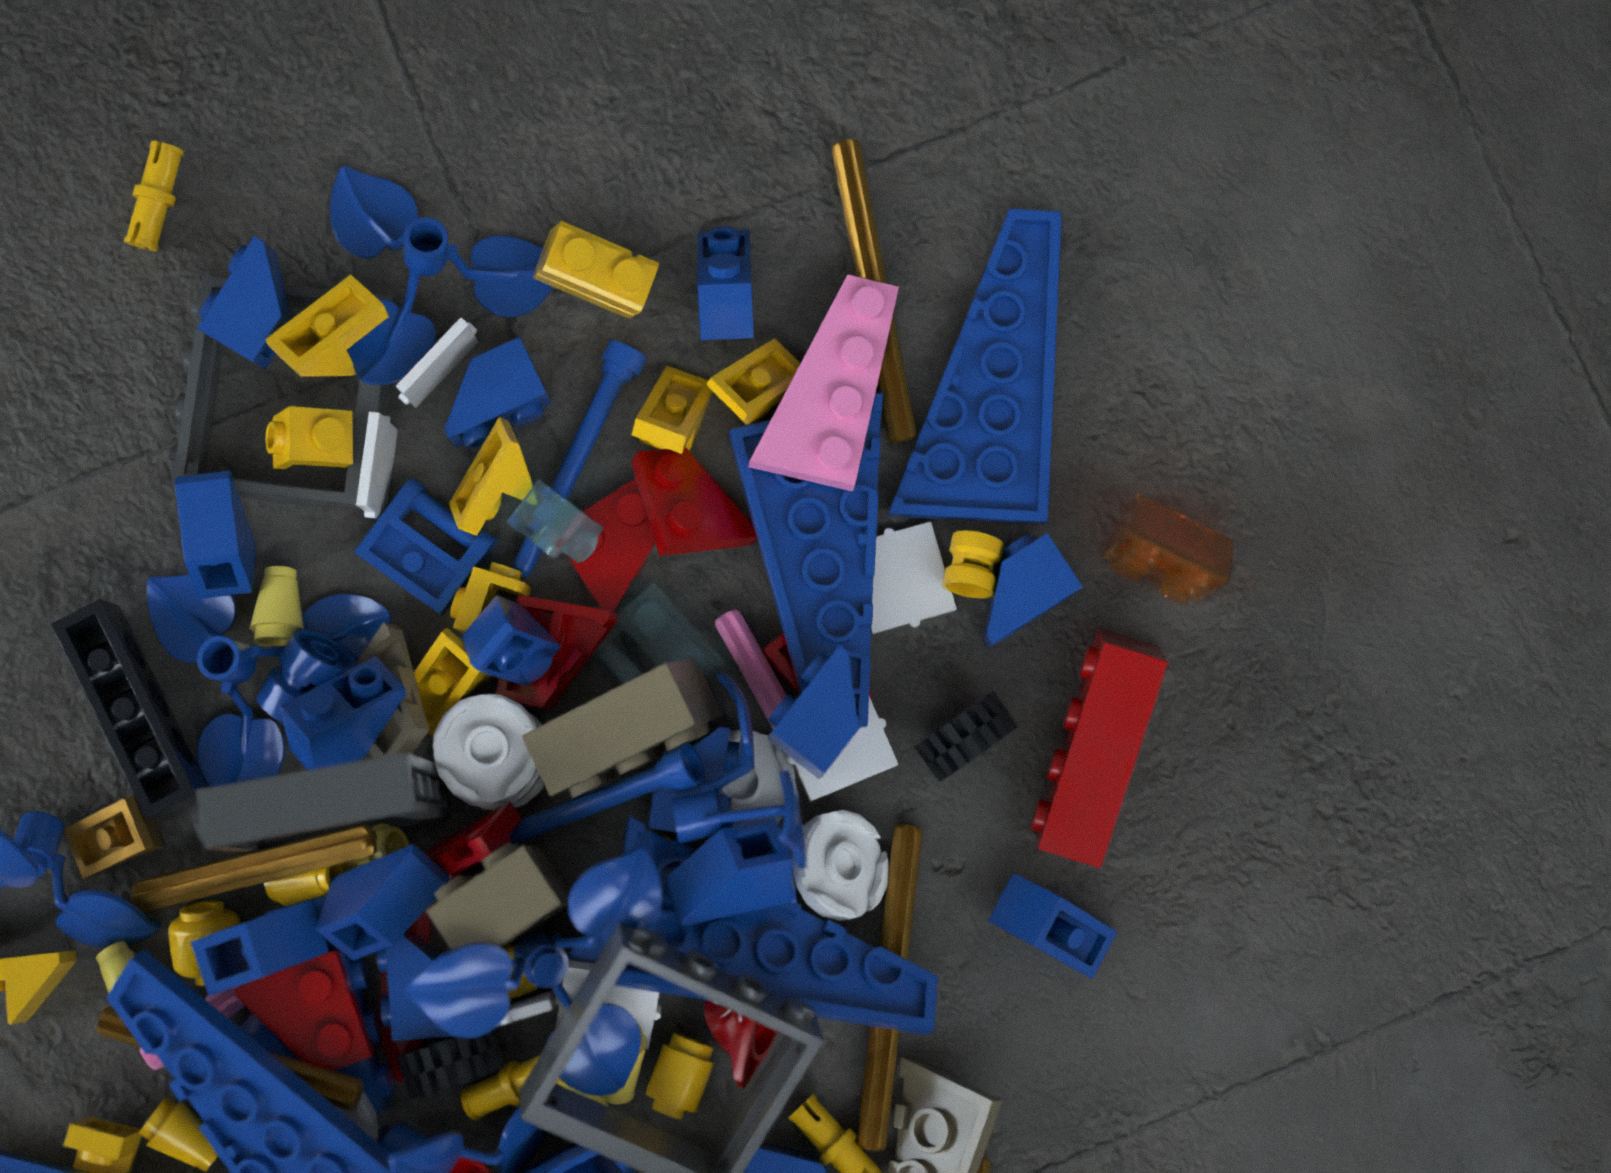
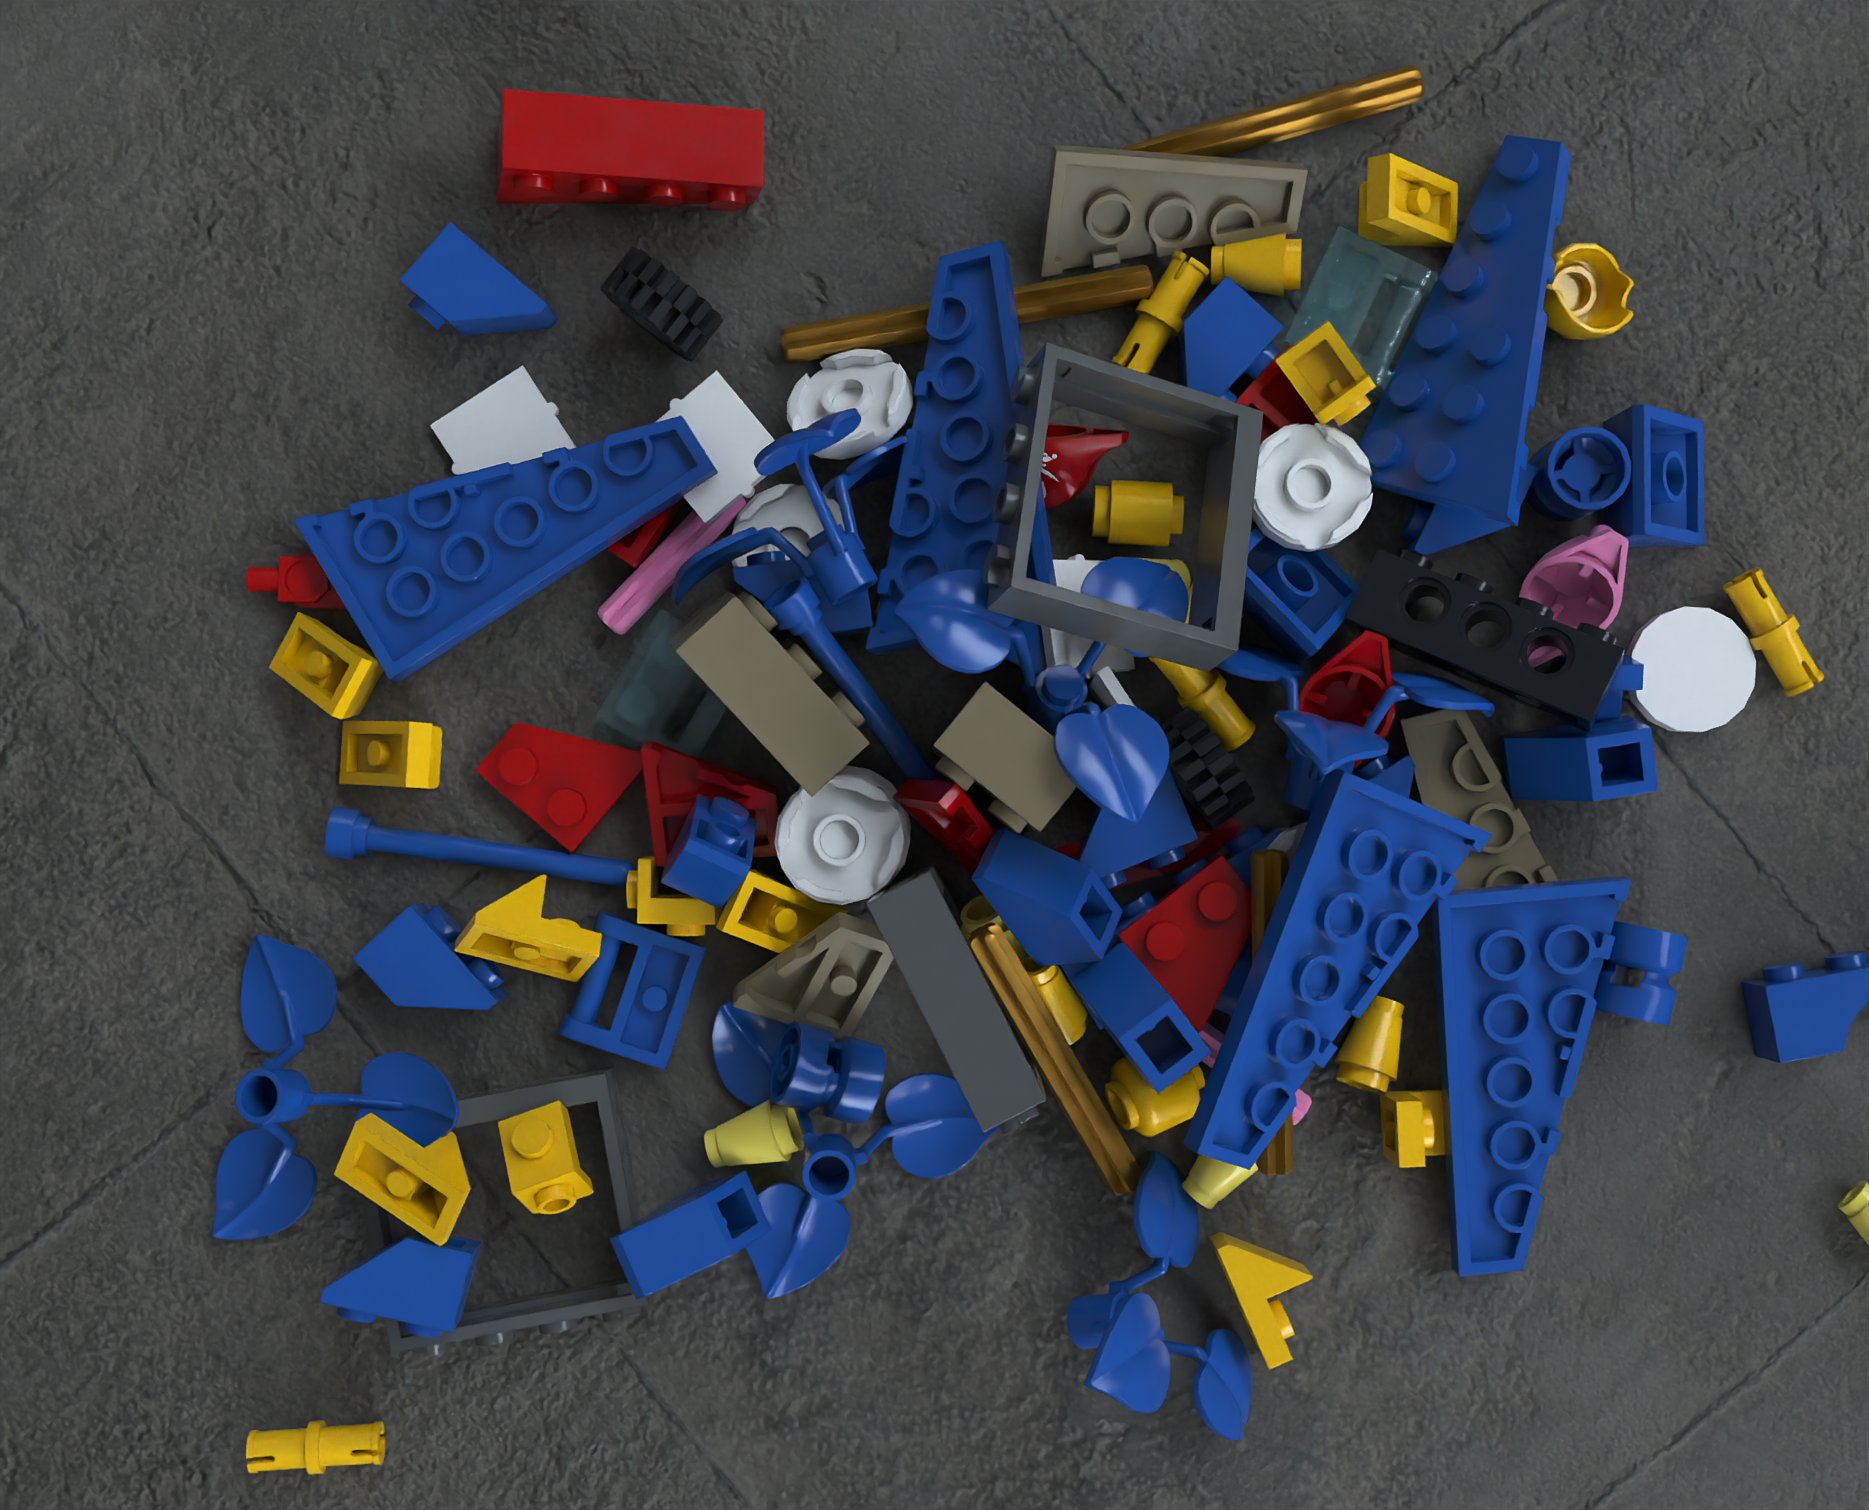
camera: 110 degrees left, 5 degrees up
(112, 837) = (1070, 1236): pearl gold slope -> none
(130, 709) = (920, 1263): black brick -> none
(342, 716) = (854, 1015): blue slope -> none
(376, 465) = (554, 1074): white piece -> none
(437, 363) = (412, 1043): white piece -> none
(555, 524) = (558, 842): clear light blue brick -> none
(595, 270) = (247, 895): yellow brick -> none
(687, 505) = (493, 705): red wing -> none
(724, 284) = (220, 741): blue slope -> none
(733, 874) = (893, 505): blue slope -> none
(822, 717) = (687, 462): blue slope -> none
(830, 400) = (319, 573): bright pink wing -> none
(869, 265) = (175, 571): pearl gold axle -> none
(972, 564) = (463, 358): yellow wheel -> none
(992, 416) = (279, 389): blue wing -> none
(1052, 925) = (844, 152): blue slope -> none
(1170, 551) = (380, 134): clear orange slope -> none

